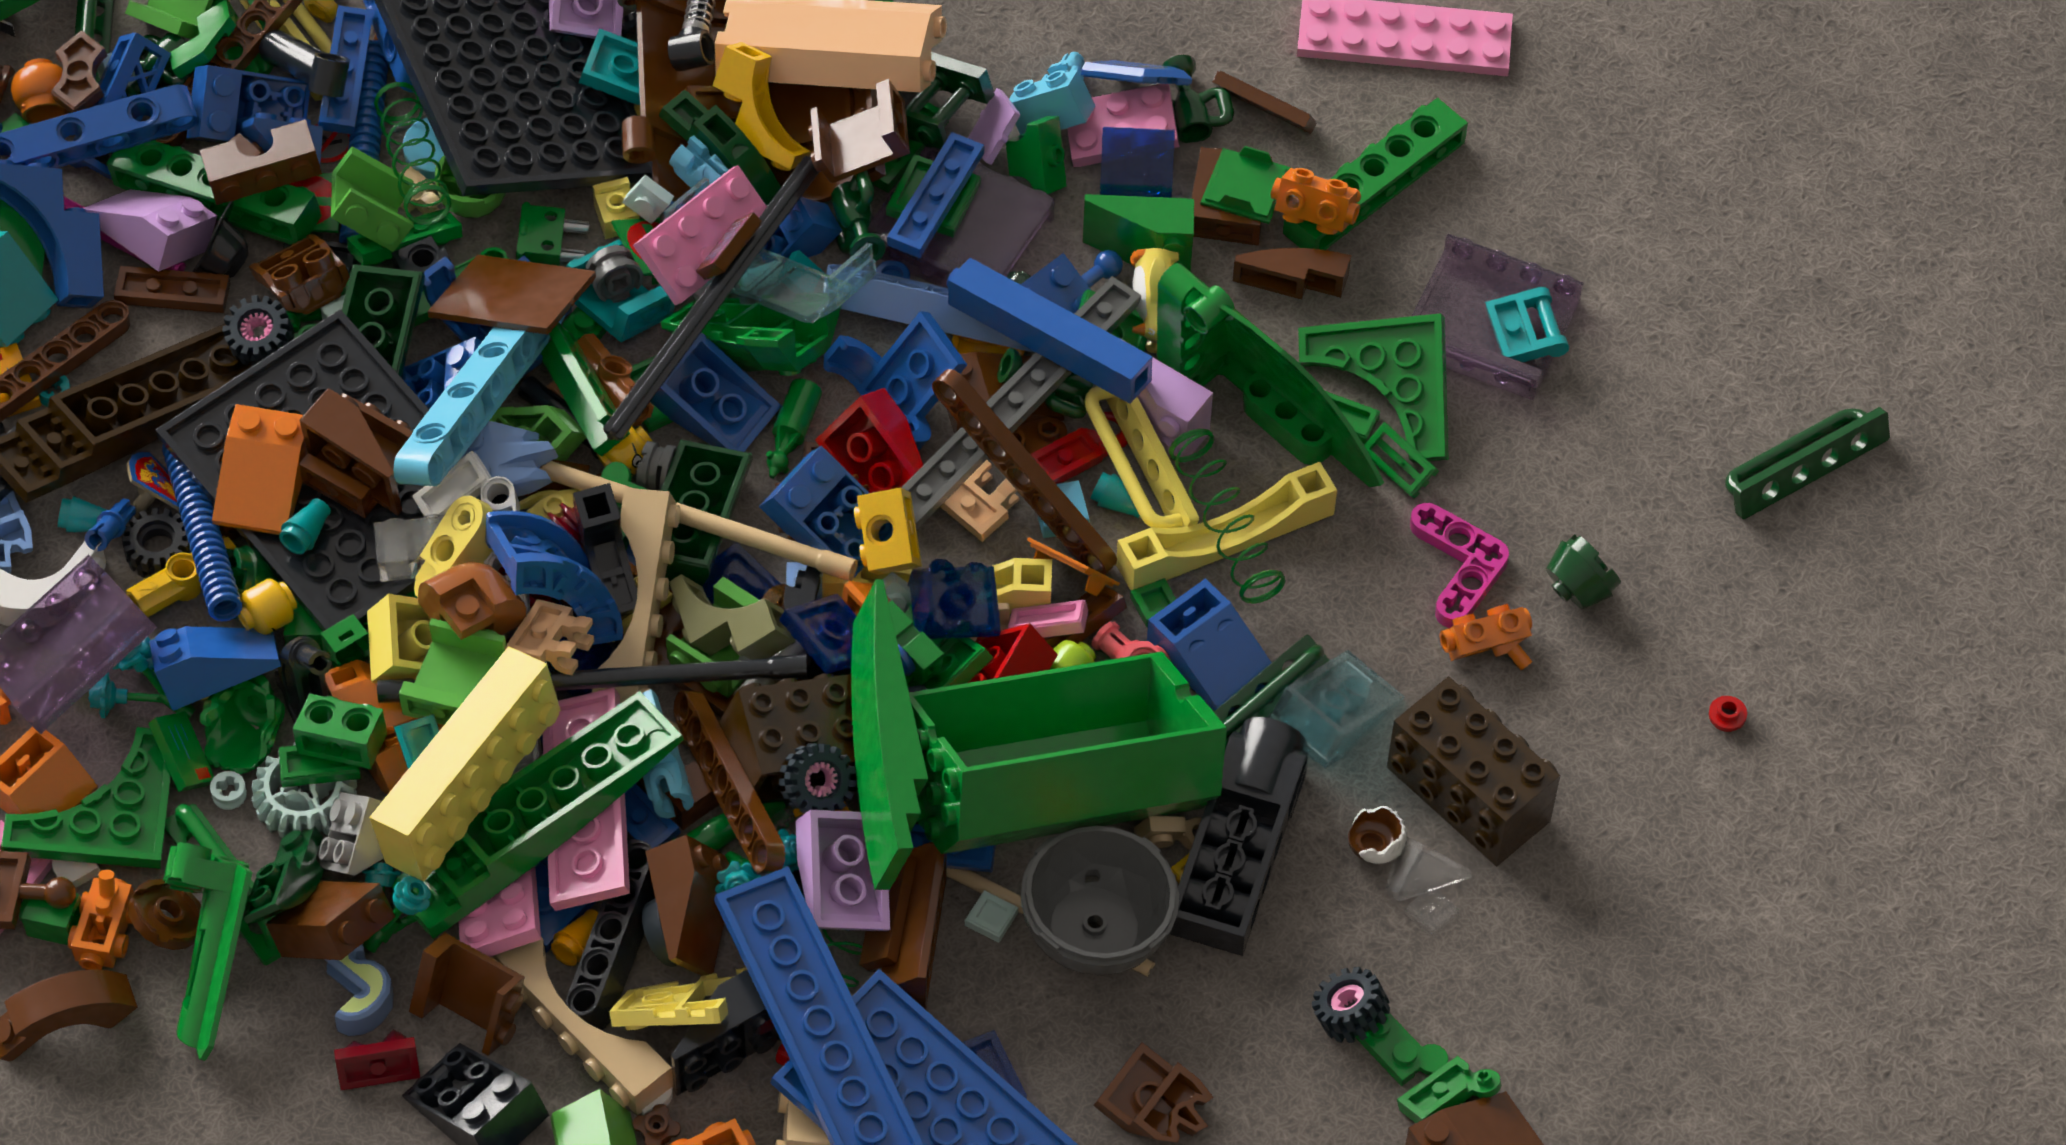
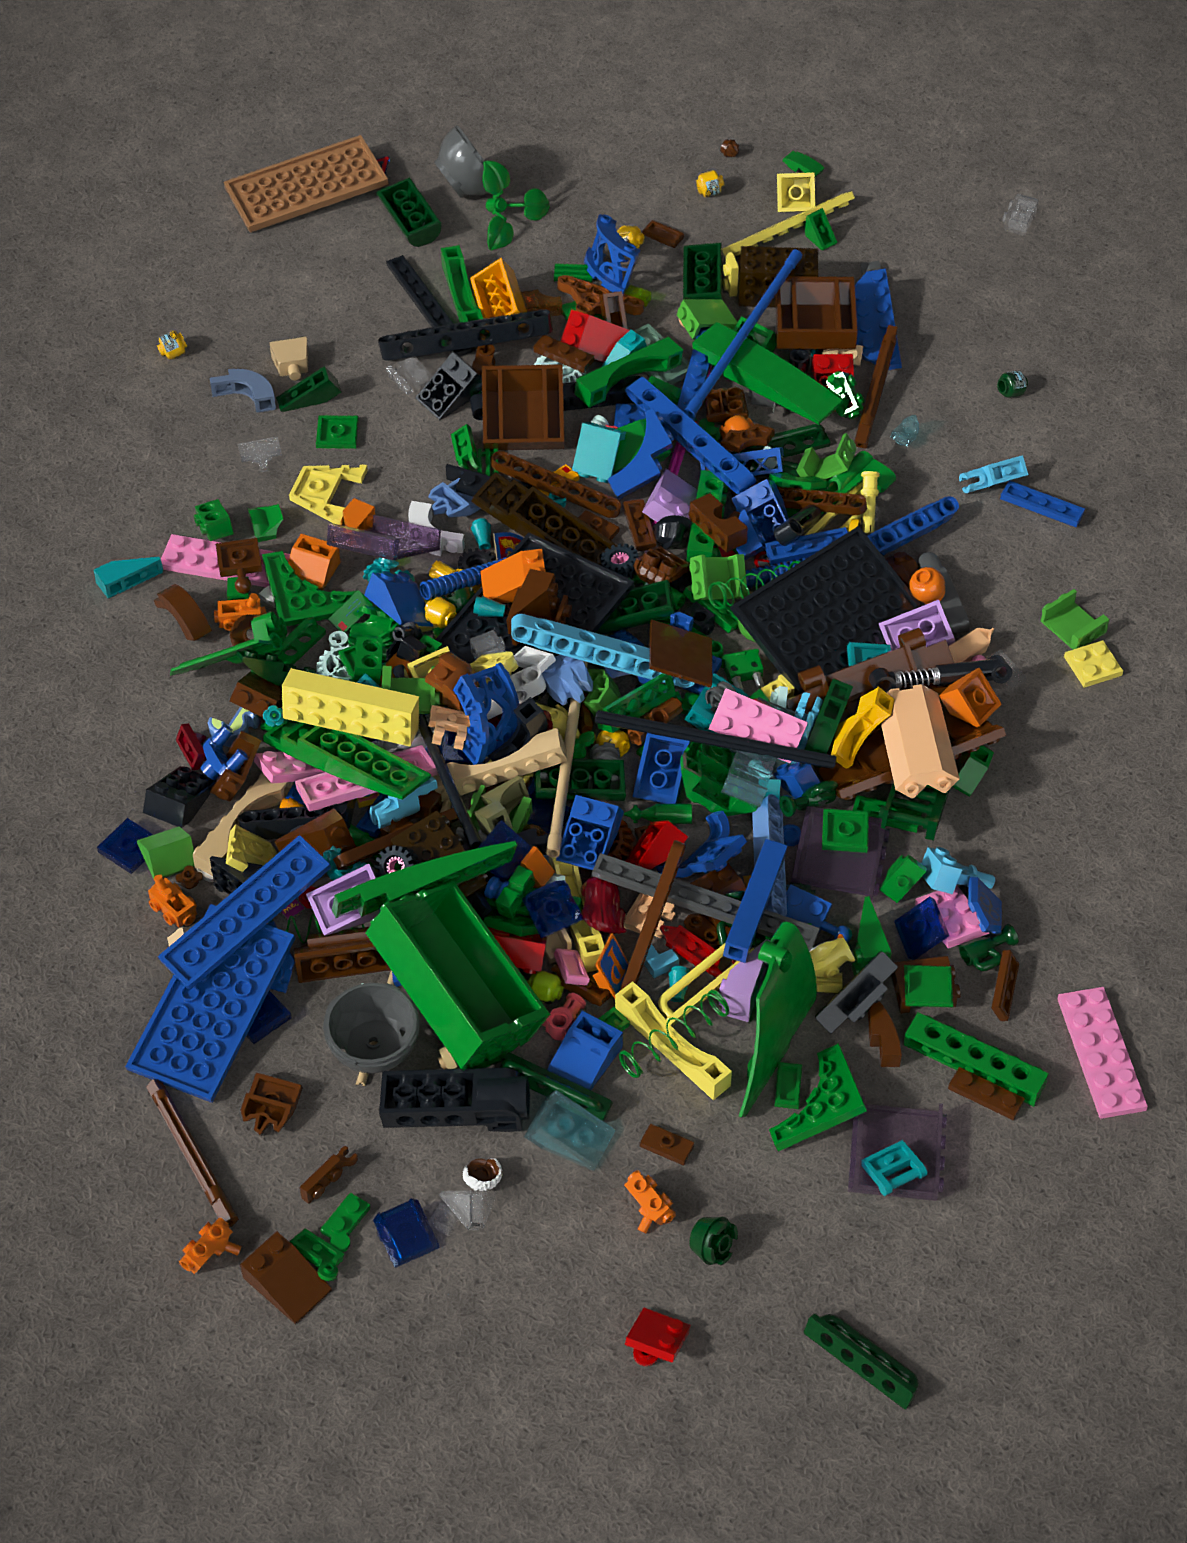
camera: 75 degrees right, 5 degrees down
(110, 525) = (473, 539): blue axle -> none
(140, 345) = (601, 525): none -> reddish brown plate
(347, 659) = (411, 649): none -> black slope
(436, 1025) = (217, 759): none -> blue connector
(729, 246) = (748, 734): reddish brown tile -> none
(861, 139) = (850, 772): panel -> none
(902, 548) = (578, 858): yellow brick -> none
(935, 195) = (837, 825): blue plate -> none
(961, 543) = (603, 906): none -> dark red piece
(995, 125) = (914, 847): lavender piece -> none
(1238, 260) = (858, 994): none -> black bracket
(1311, 1048) = (329, 1172): none -> reddish brown plate
(1319, 200) = (925, 1020): orange brick -> none
(1359, 1018) = (358, 1185): black bush -> none
(1391, 593) = (666, 1144): none -> reddish brown plate
(1421, 480) = (765, 1123): green tile -> none
(1429, 187) = (986, 1093): none -> reddish brown plate
(1444, 967) = (405, 1232): none -> clear blue slope
(1473, 563) = (705, 1184): dark pink beam -> none
(1473, 770) = (536, 1207): dark brown brick -> none
(1708, 686) = (657, 1335): none -> red plate

